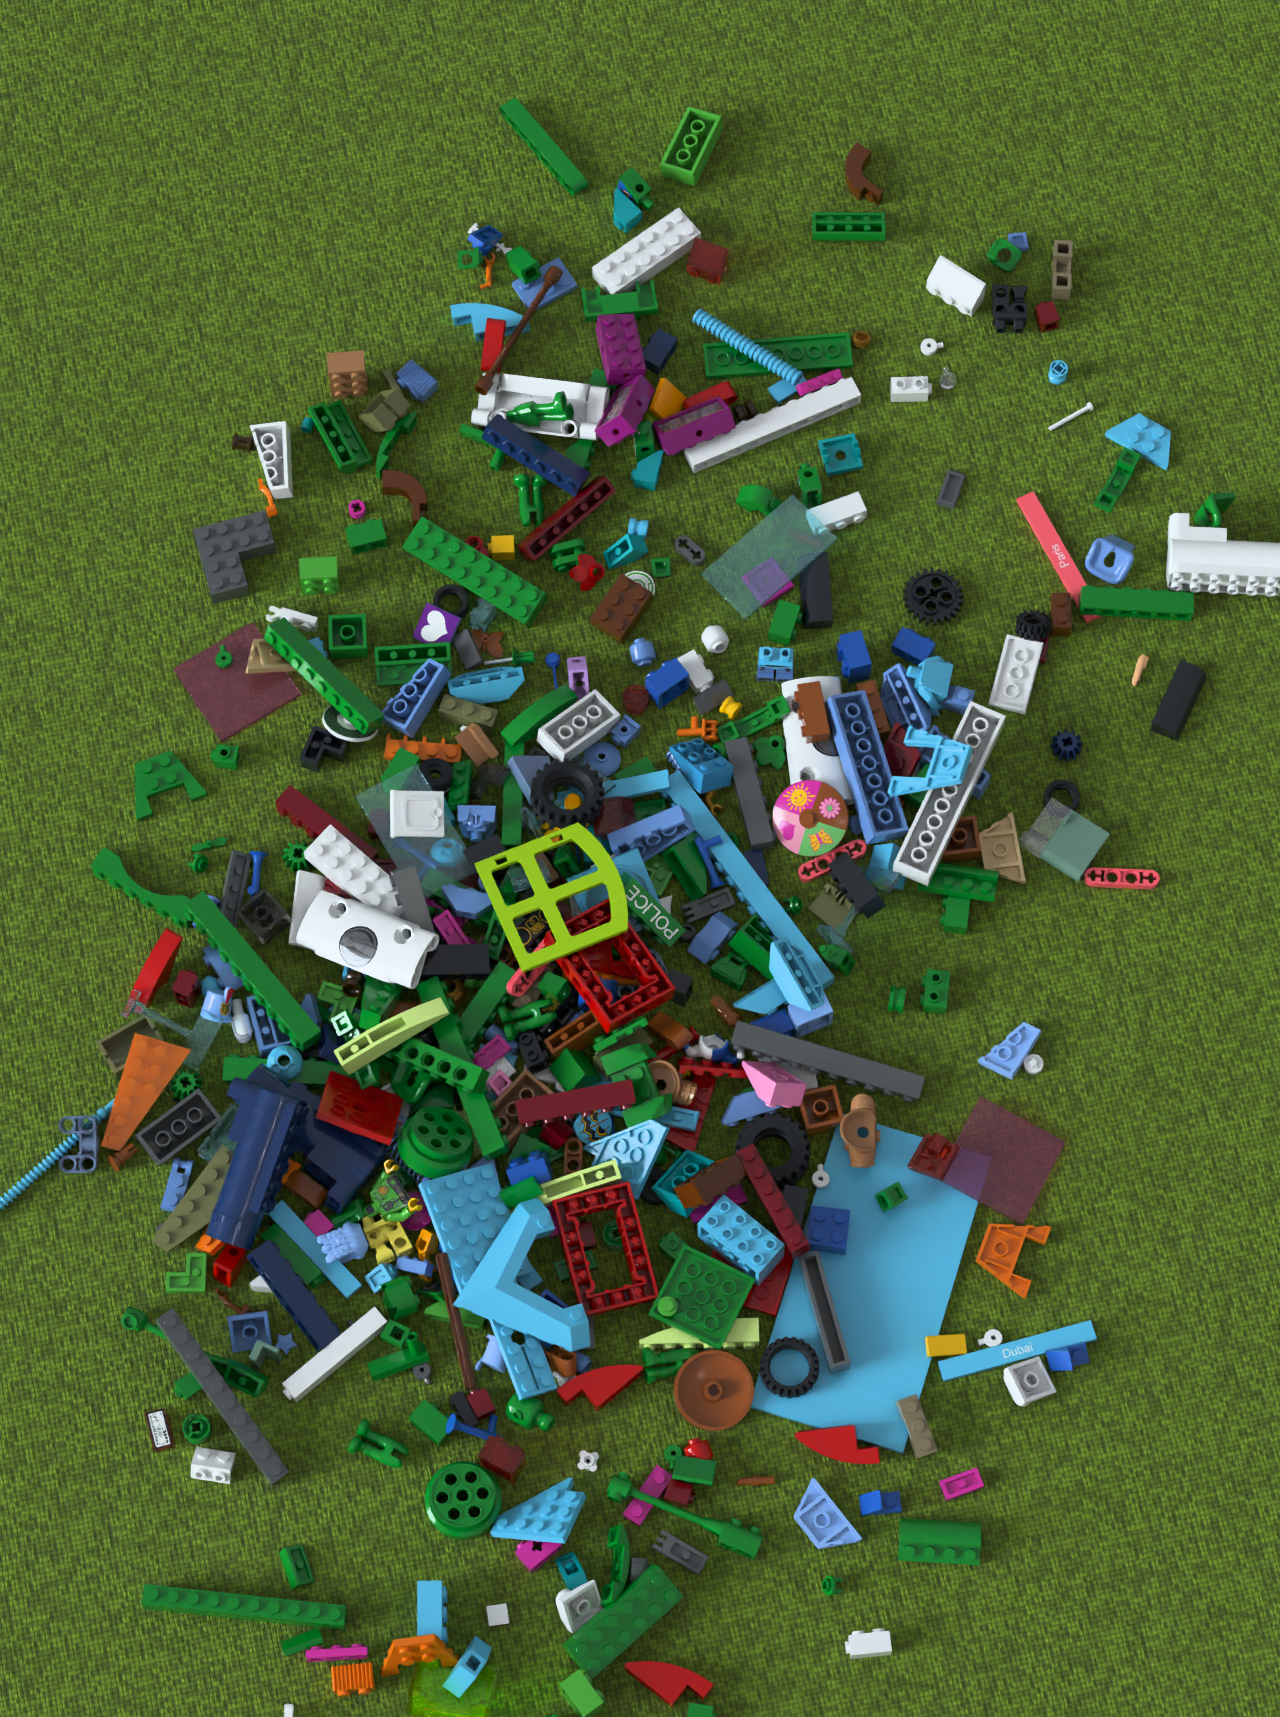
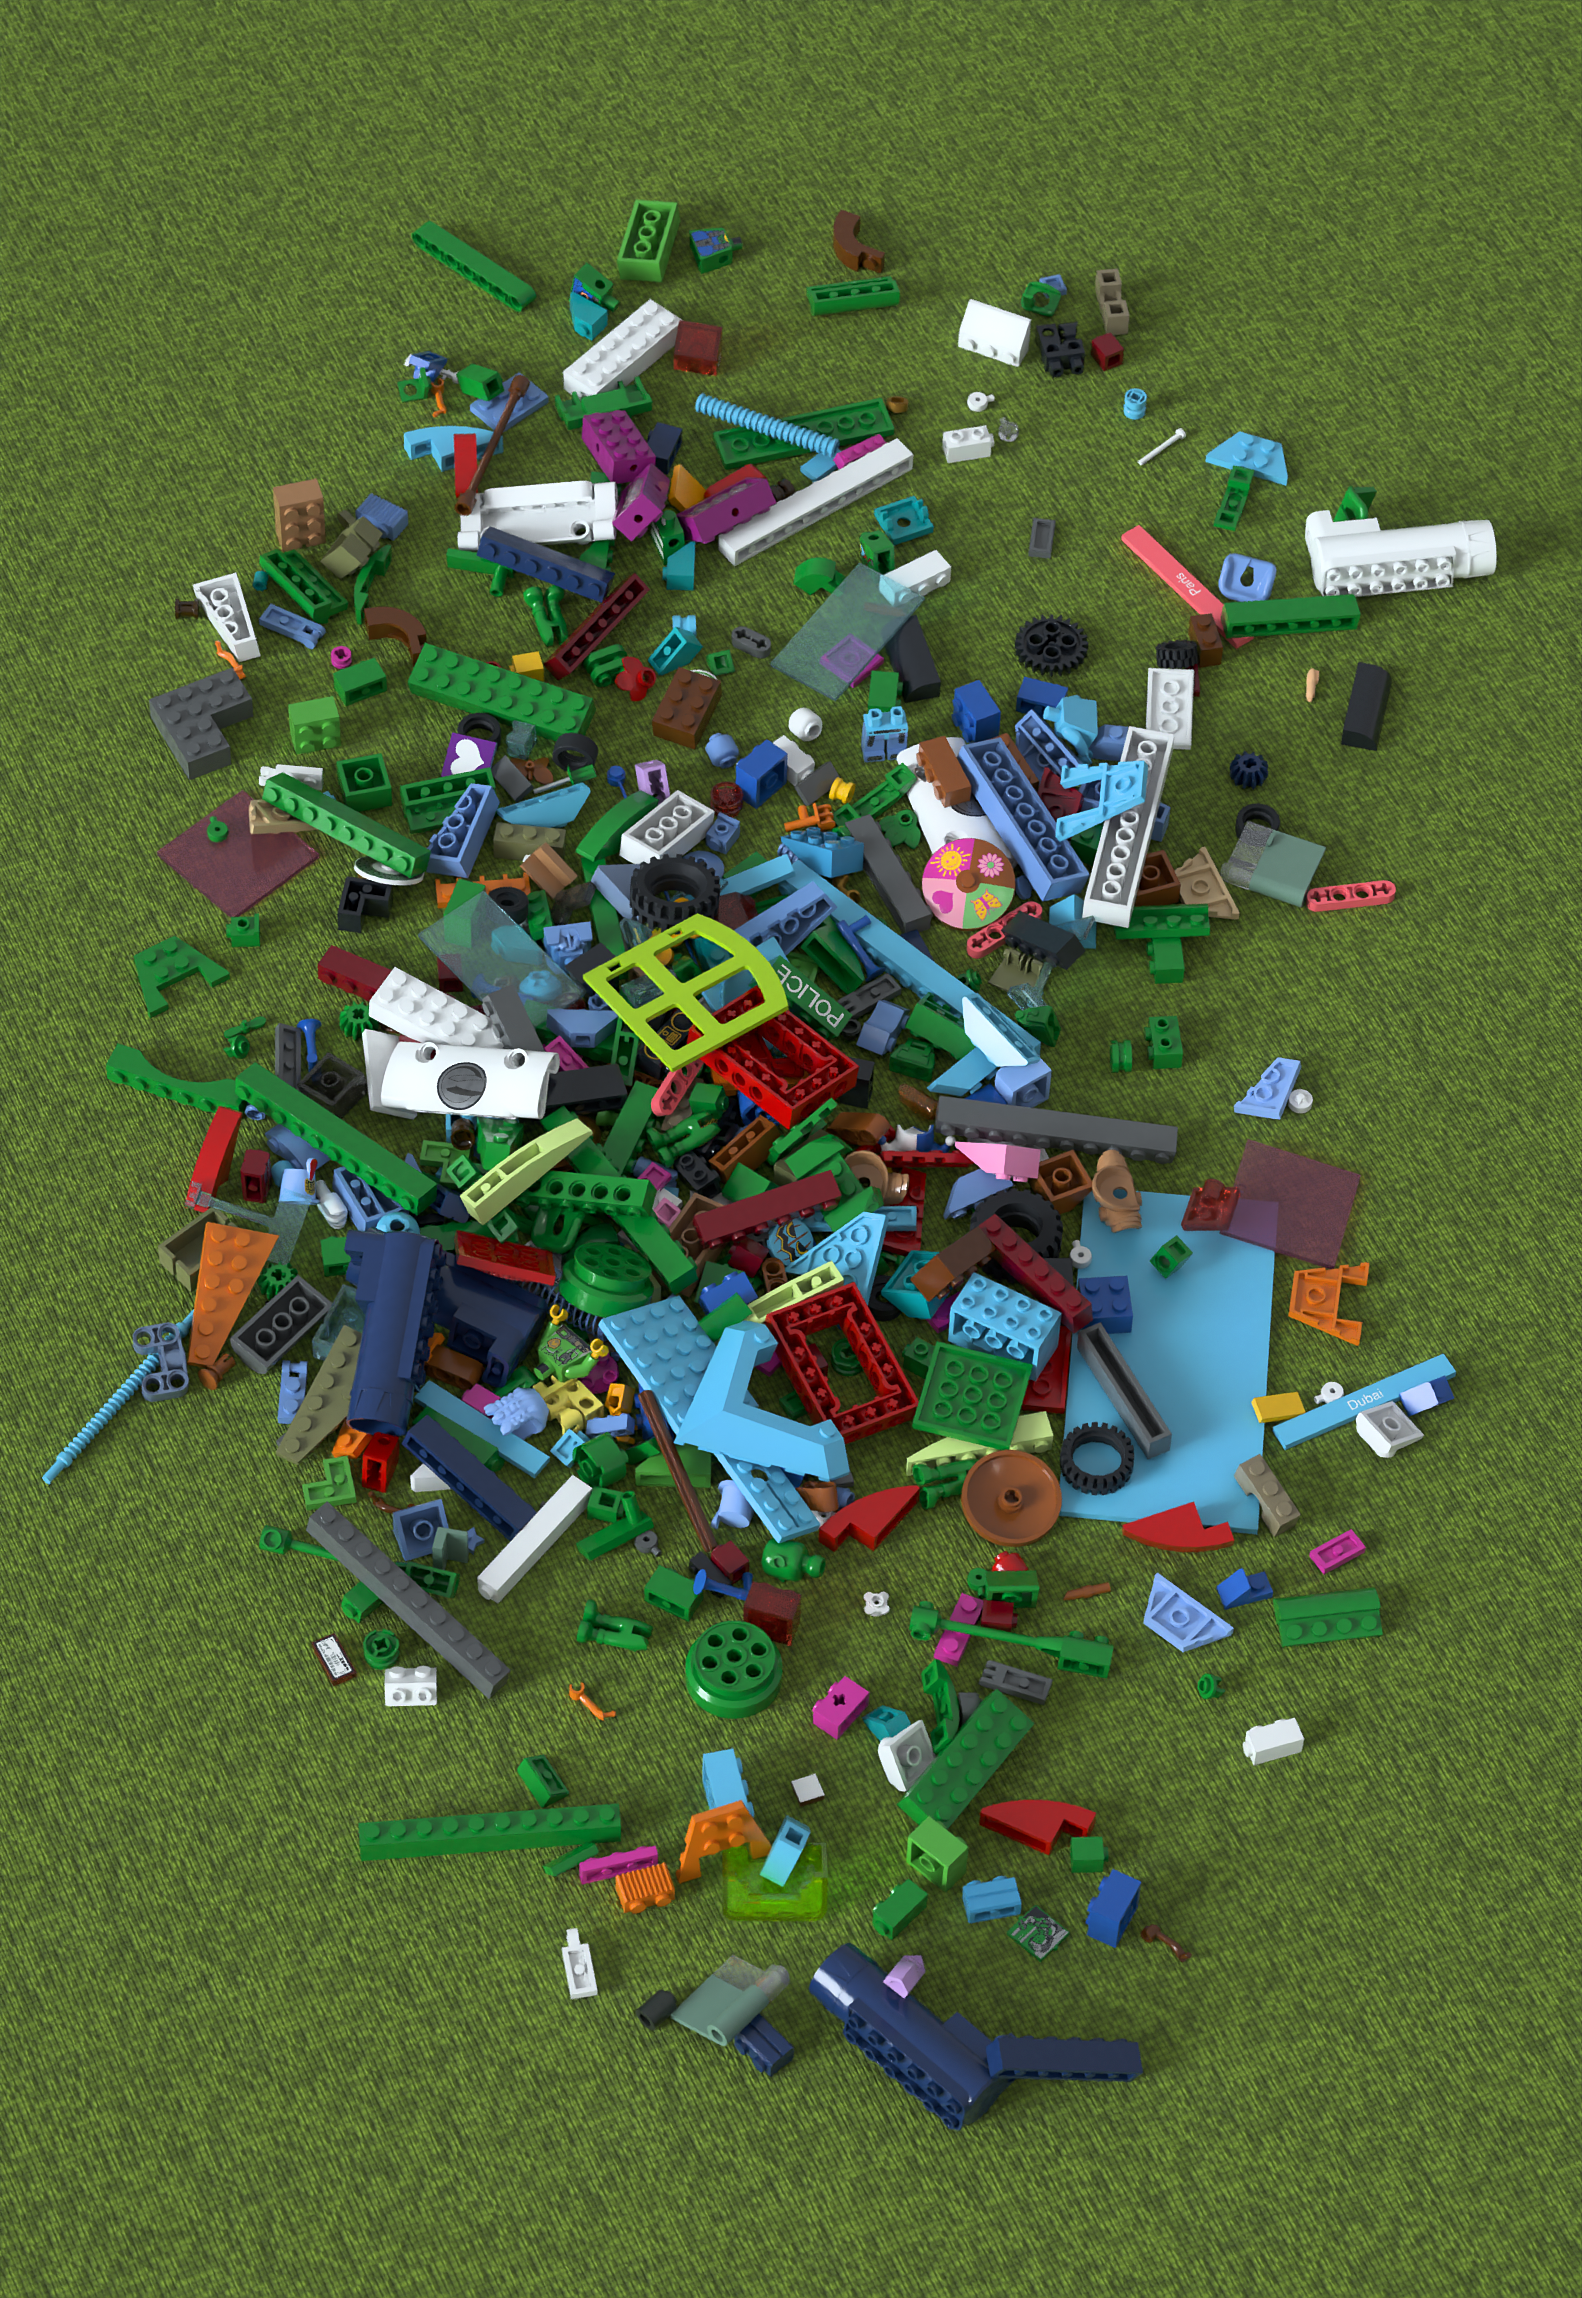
camera: 15 degrees left, 15 degrees down
(323, 473) = (292, 625): none -> medium blue plate
(346, 1505) = (580, 1695): none -> orange piece
(413, 812) = (492, 943): white container -> none
(522, 637) = (577, 743): none -> black tyre
(533, 413) = (527, 524): green piece -> none
(542, 1517) = (841, 1666): medium azure wing -> none
(667, 1306) = (934, 1409): bright green plate -> none
(743, 161) = (712, 248): none -> torso

